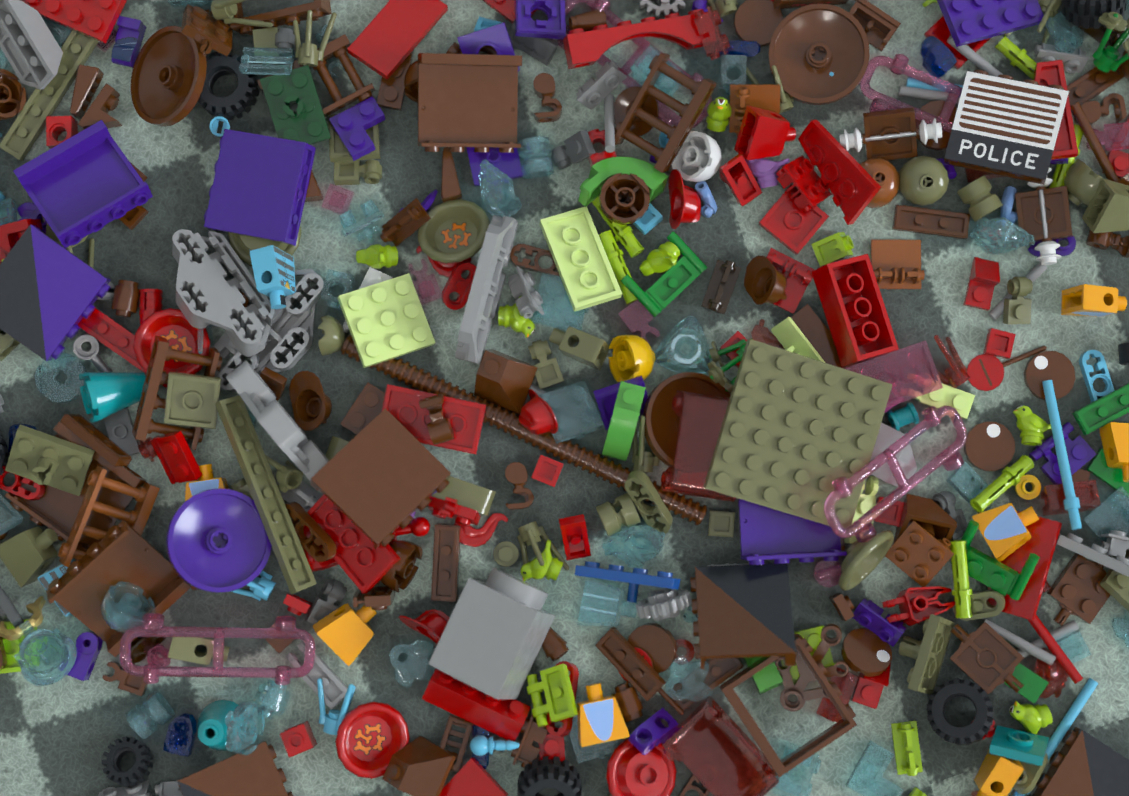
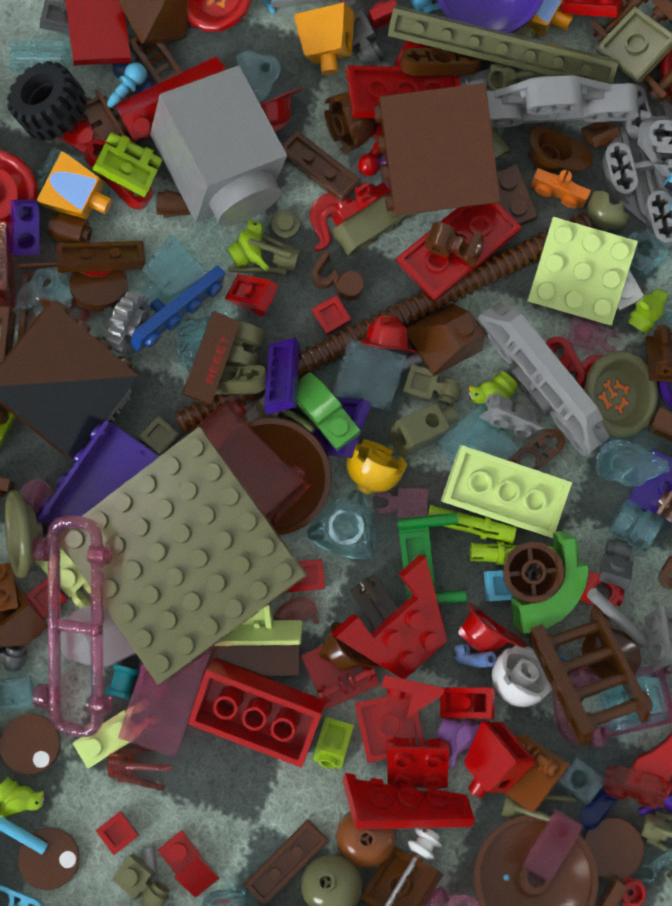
camera: 130 degrees right, 5 degrees down
(332, 379) = (561, 187): none -> orange plate
(377, 598) = (332, 75): reddish brown plate -> none
(621, 465) = (282, 376): none -> dark purple plate
(646, 524) = (211, 358): none -> reddish brown tile
(660, 259) = (448, 568): lime animal -> none
(717, 373) = (317, 549): plant -> none
(718, 114) = (548, 733): lime animal -> none
(729, 252) = (408, 633): none -> red wing
(760, 213) = (420, 693): none -> red slope
(791, 57) = (552, 845): none -> clear pink slope
(897, 263) = (271, 794): dark orange hinge -> none
(988, 372) = (100, 801): red piece -> none

